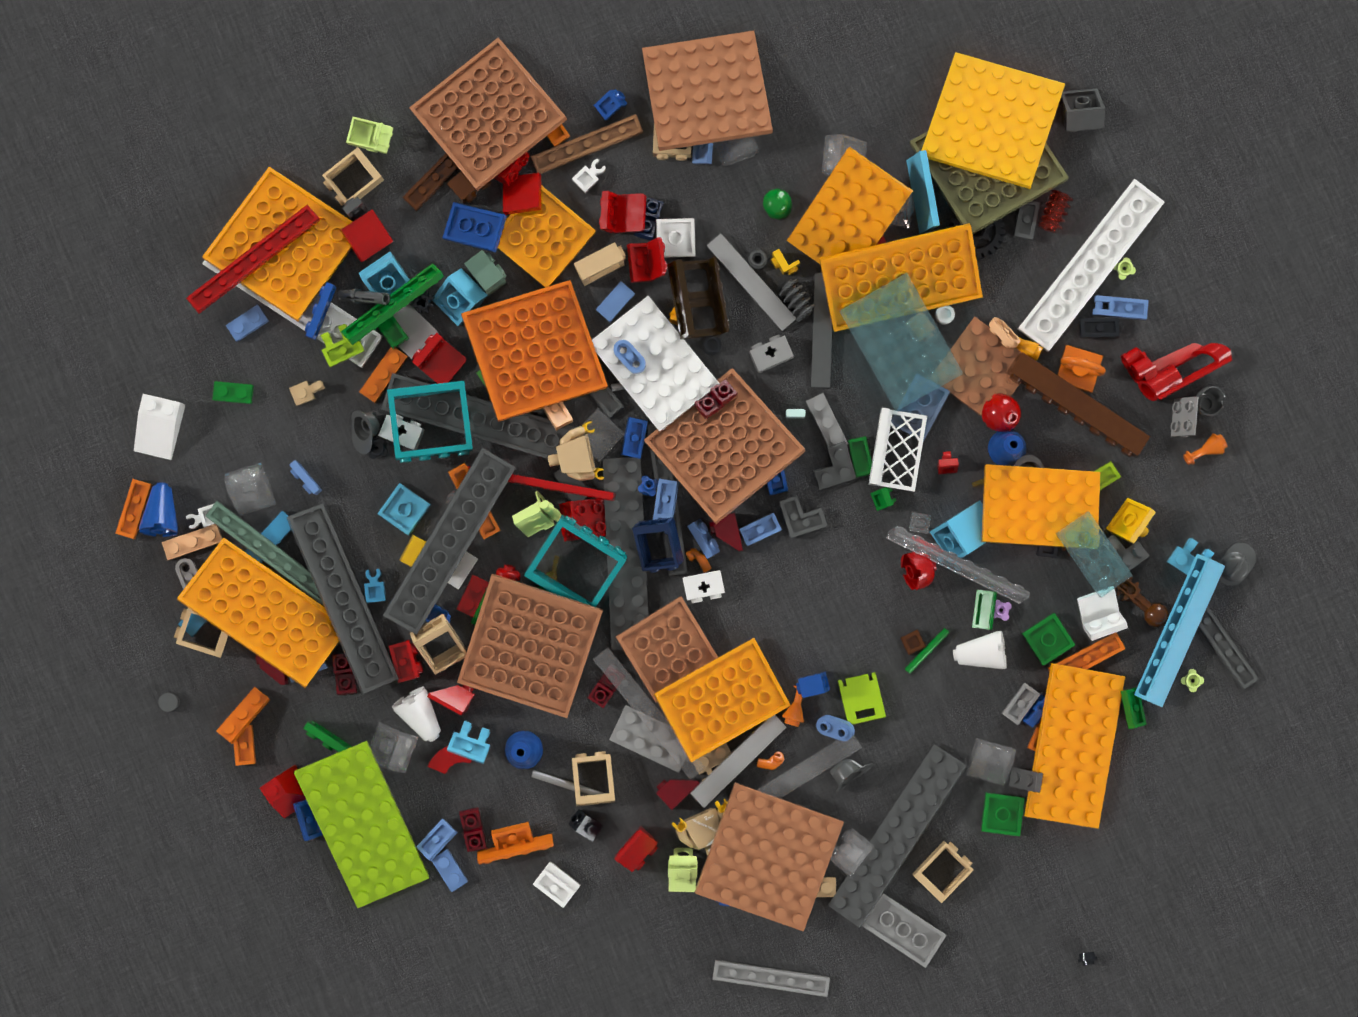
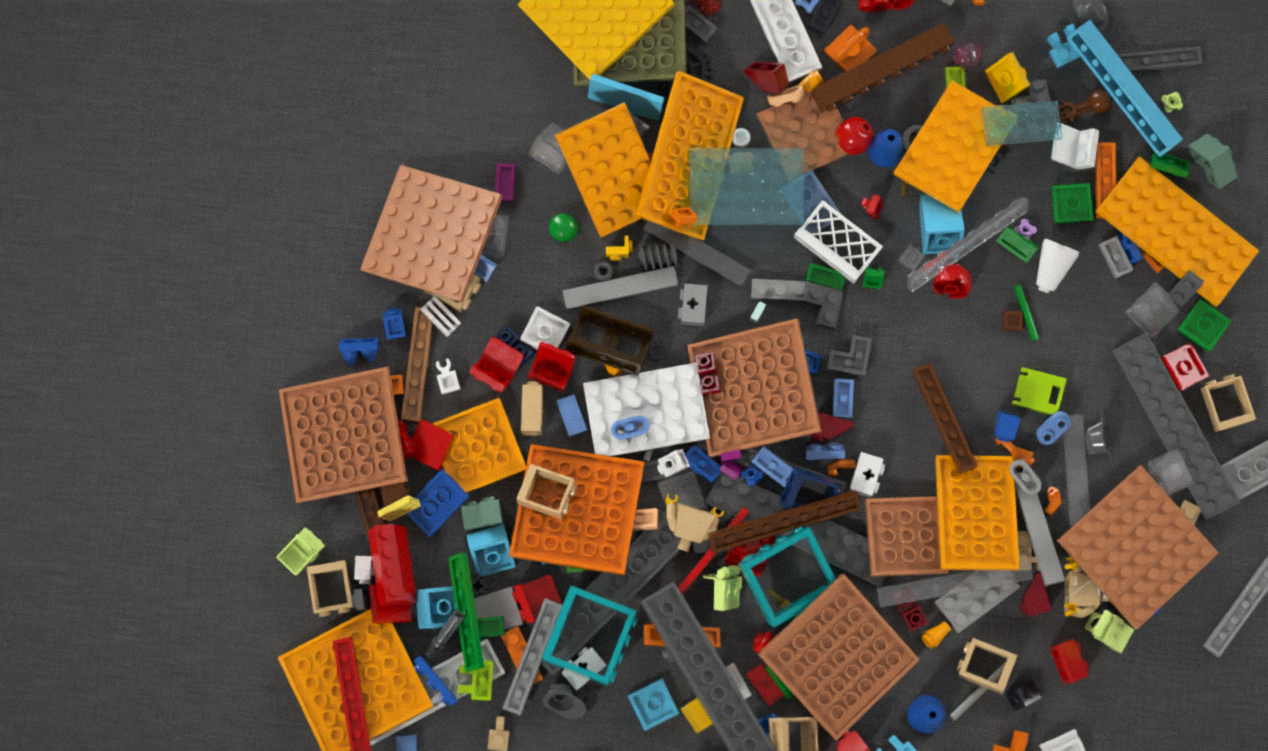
camera: 65 degrees left, 5 degrees down
(382, 382) = (532, 657): none -> light grey tile
(384, 198) = (364, 569): none -> white brick
(399, 219) = (392, 565): none -> red slope
(451, 197) = (399, 508): none -> light yellow tile
(530, 296) = (528, 484): none -> tan window
(569, 78) = (350, 349): none -> blue tile
(596, 721) = (935, 635): none -> light orange cone
(621, 535) = (784, 521): none -> reddish brown tile
(623, 415) = (678, 460): none -> white brick
(643, 124) = (429, 304): none -> white tile
(643, 465) = (731, 469): none -> magenta tile
(654, 458) = (730, 456): none -> magenta tile
(777, 725) = (1025, 476): none -> light grey plate
(790, 130) = (505, 181): none -> magenta tile
(790, 628) = (944, 419): none -> reddish brown plate
(842, 301) = (684, 216): none -> orange tile
(955, 816) = (1185, 367): none -> tile
(1013, 307) = (768, 76): none -> dark red slope
(1132, 474) = (967, 55): none -> clear pink head
(1159, 745) = (1215, 159): none -> sand green brick

